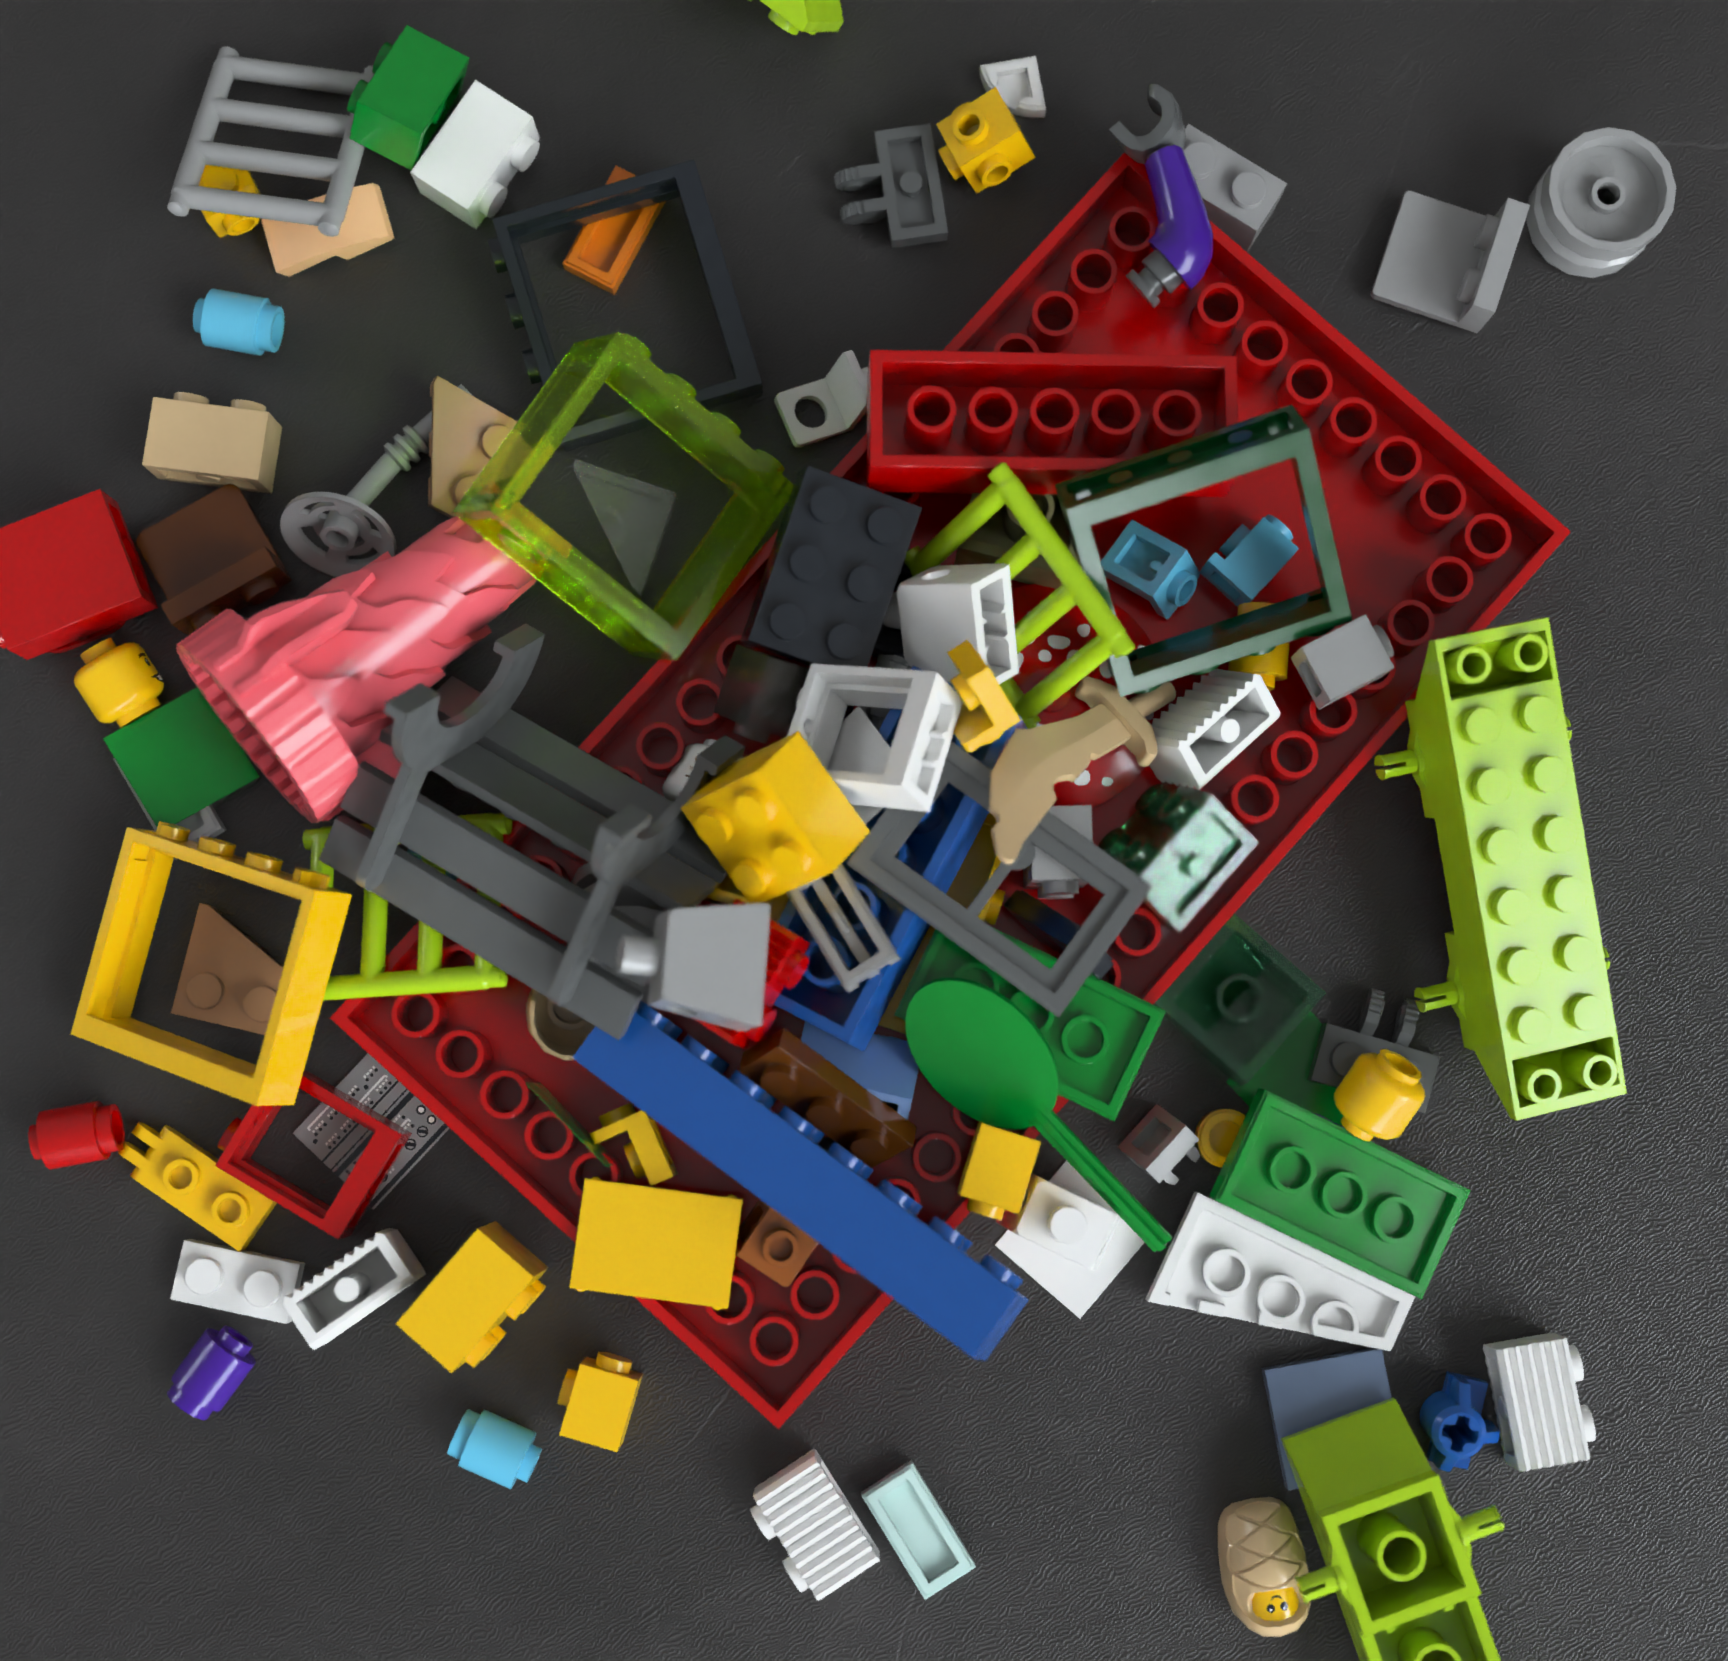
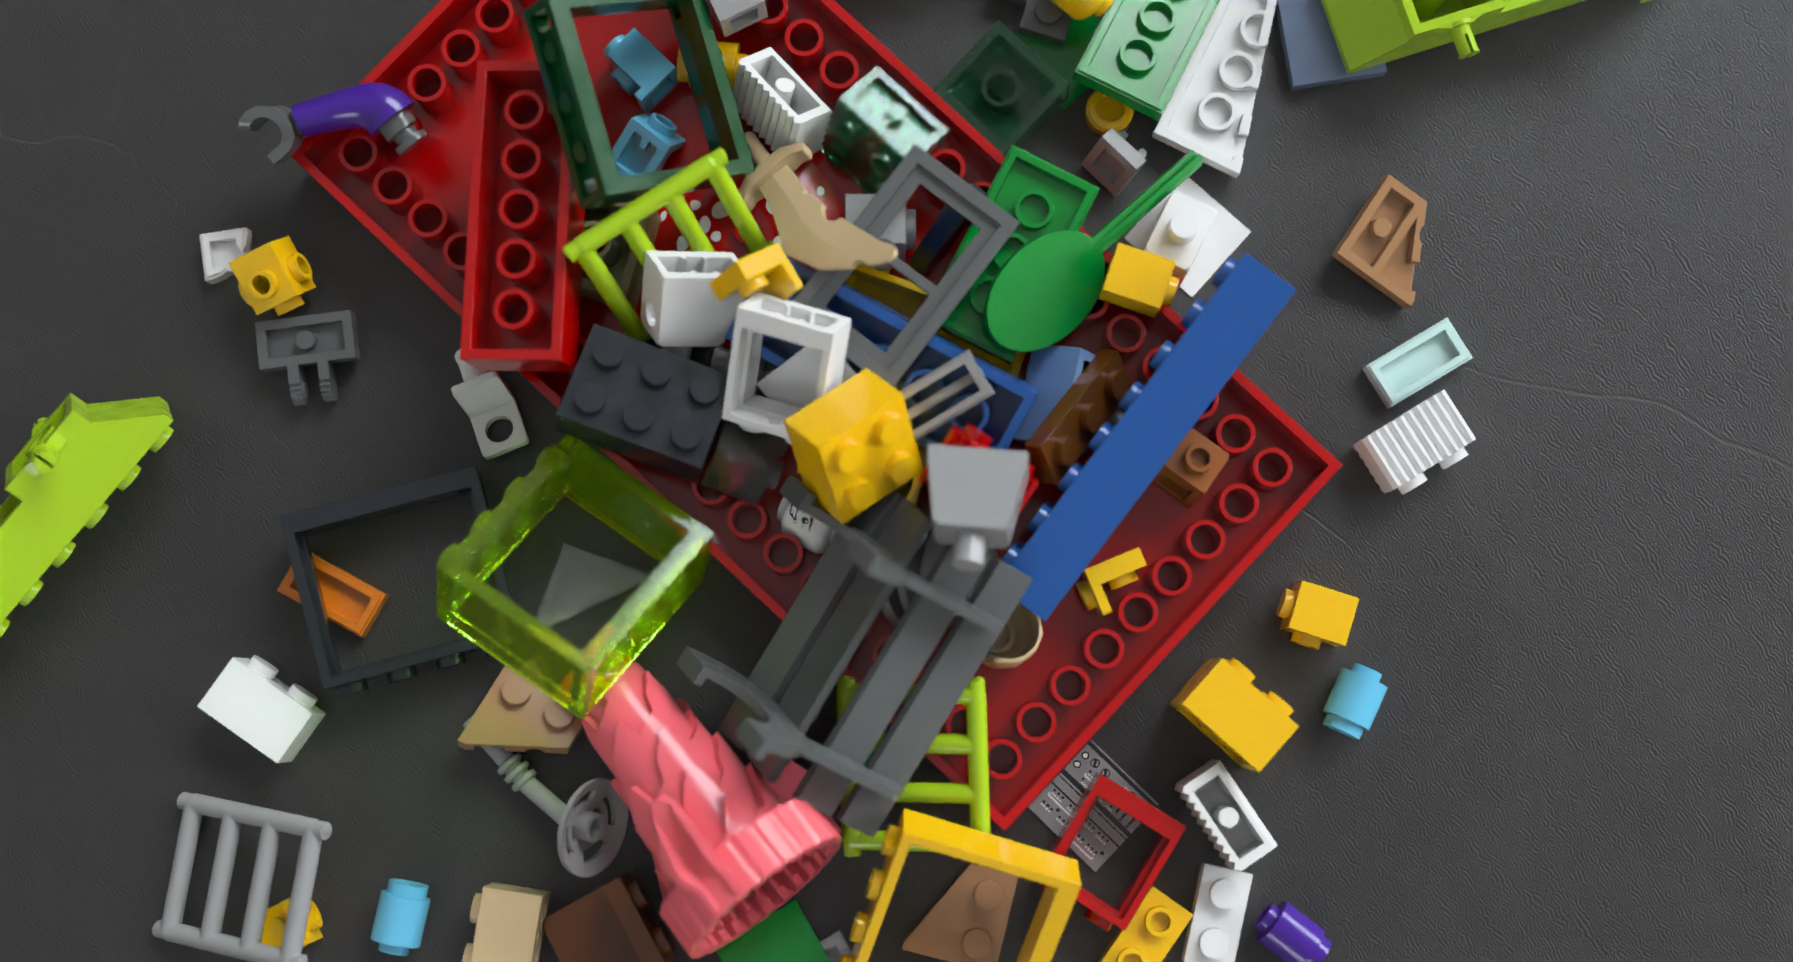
camera: 85 degrees left, 0 degrees up
(302, 245) = (336, 862): light nougat slope -> none
(406, 97) = (208, 765): green brick -> none
(569, 1120) = (1093, 630): sticker -> none
(656, 1243) = (1193, 560): yellow piece -> none
(1071, 1488) = (1386, 240): none -> medium nougat wing
(1233, 189) = (324, 68): light grey brick -> none
(1259, 1565) = (1445, 92): tan piece -> none

